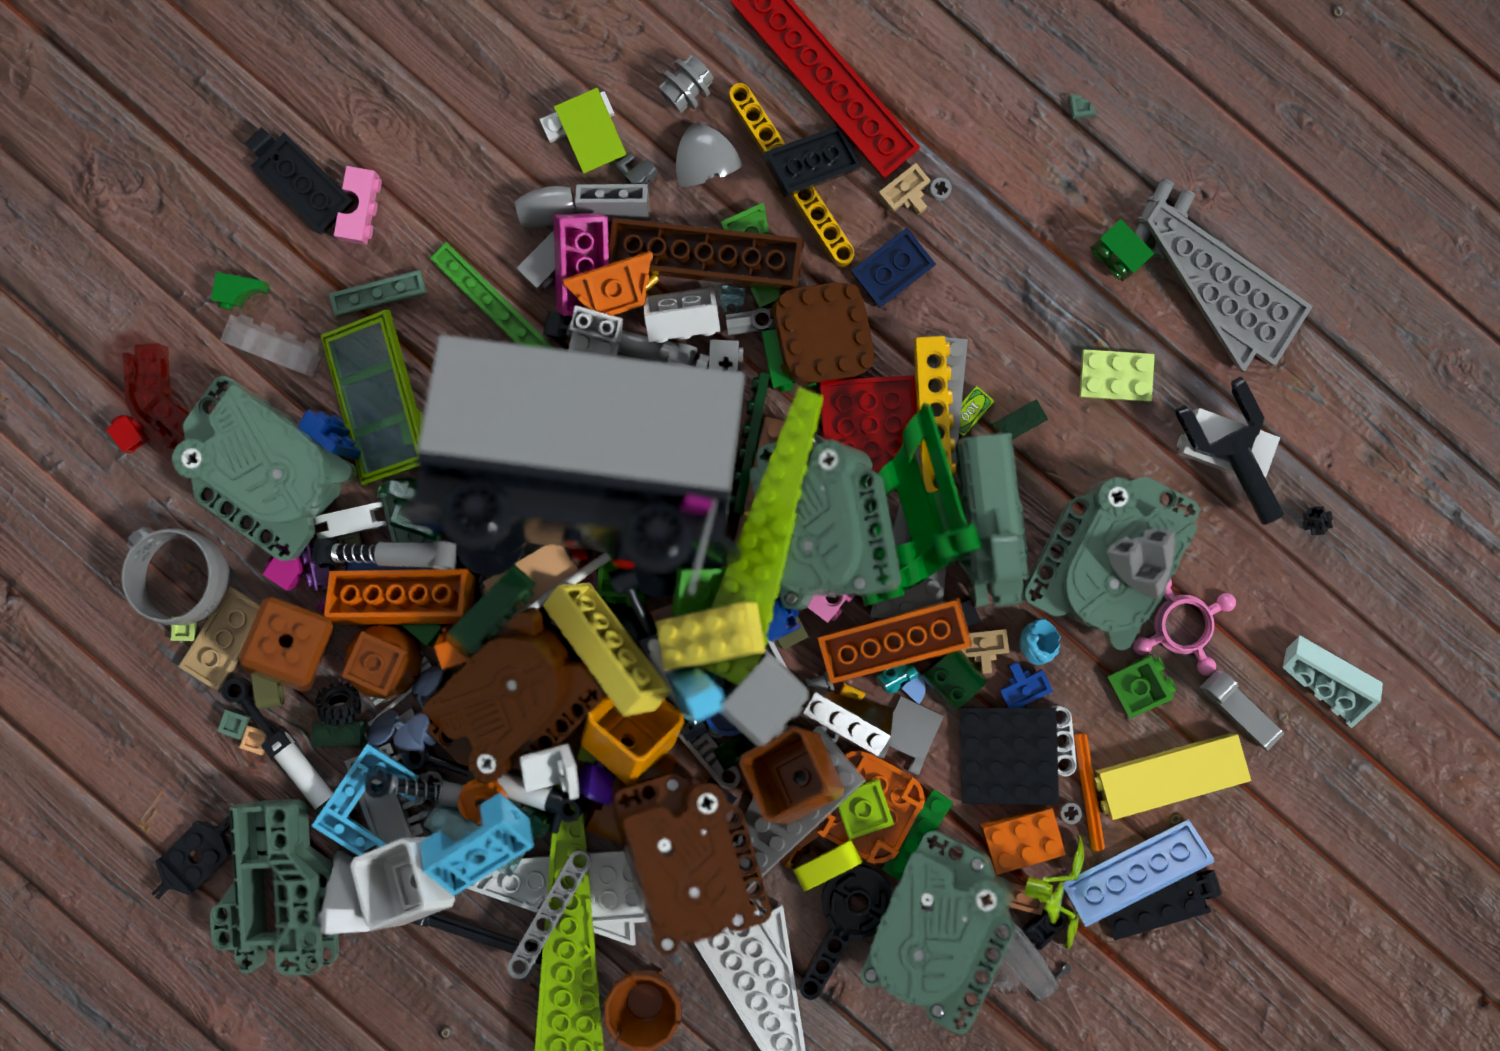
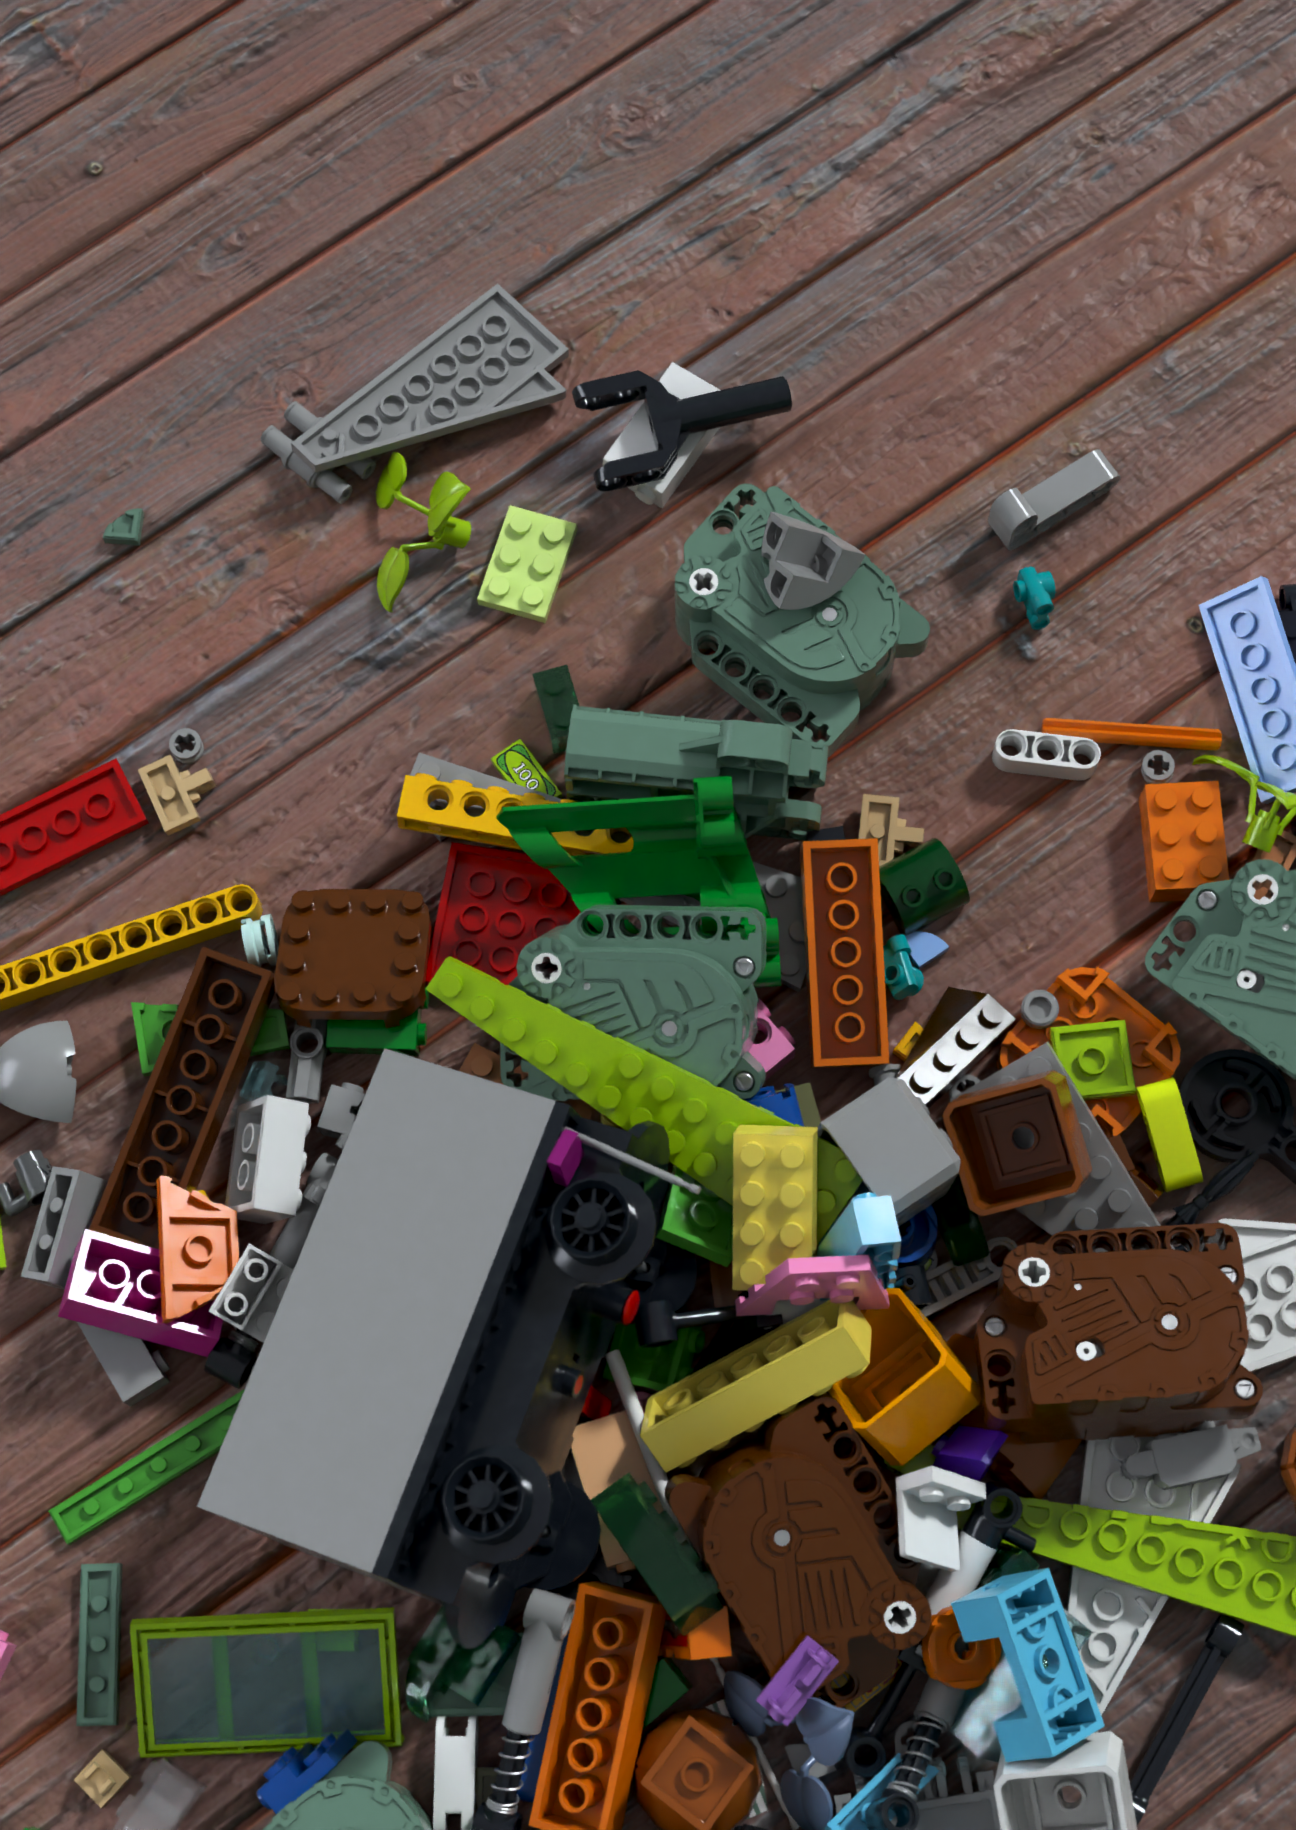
camera: 70 degrees left, 15 degrees down
(303, 317) = (103, 1778): none -> tan tile
(434, 711) = (796, 1680): none -> medium lavender hinge
(538, 206) = (38, 1337): light grey piece -> none
(551, 914) = (1160, 1589): light grey beam -> none
(629, 916) = (1193, 1456): none -> light grey hinge
(664, 668) = (817, 1278): none -> bright pink wing
(804, 903) = (1219, 1186): none -> black piece
(811, 161) = (90, 914): black plate -> none
(821, 271) = (256, 942): none -> light aqua wheel
(889, 769) = (1039, 1009): none -> light grey tile
(893, 268) = (284, 838): dark blue plate -> none
(912, 732) = (990, 964): light grey flag -> none
(927, 820) = (1132, 976): green plate -> none
(1009, 755) = (1053, 831): black plate -> none
(1024, 686) = (955, 790): blue hinge -> none
(1039, 641) = (892, 751): medium azure hair -> none
(1121, 251) = (348, 512): green brick -> none
(1127, 315) = (444, 528): none -> lime plant
(1142, 685) = (988, 624): bright green plate -> none
(1172, 776) = (1130, 614): light yellow brick -> none
(1173, 711) = (1036, 593): none -> teal plate
(1205, 666) = (978, 534): bright pink piece -> none
(1317, 520) = (803, 341): black gear -> none
(1333, 680) = (1037, 368): light aqua wedge -> none

